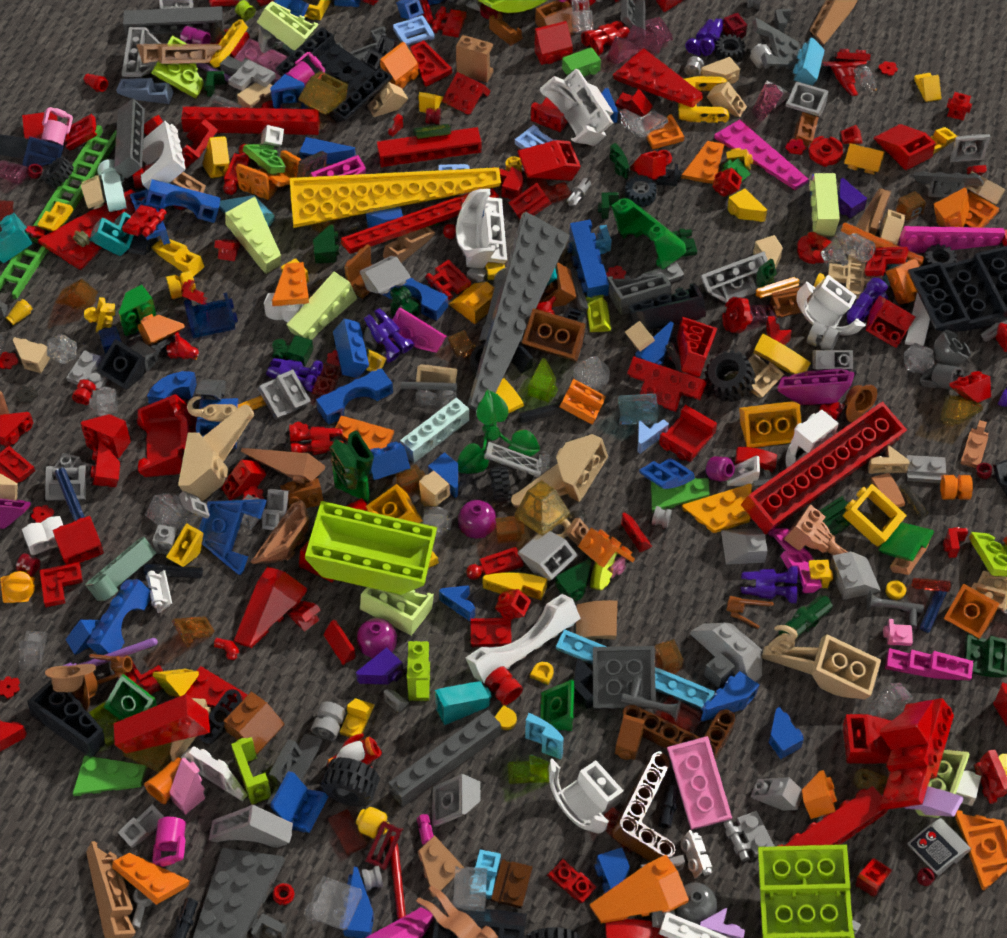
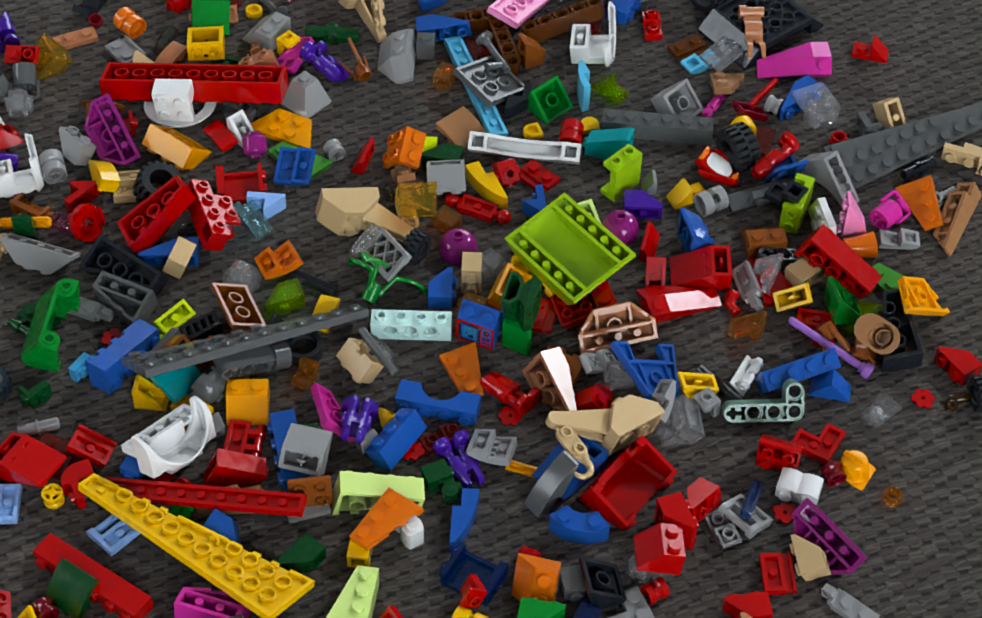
camera: 135 degrees left, 5 degrees down
(67, 748) = (919, 297): none -> light orange wing
(95, 399) = (660, 549): none -> red slope
(216, 684) = (769, 269): none -> clear slope
(227, 669) = (748, 285): none -> light grey hinge
(255, 341) = (463, 517): none -> blue slope
(258, 755) = (780, 193): none -> black slope
(273, 650) = (703, 268): none -> red slope
(307, 671) = (692, 231): none -> blue slope
(308, 798) = (788, 146): none -> red piece
(426, 254) = (235, 468): none -> red slope

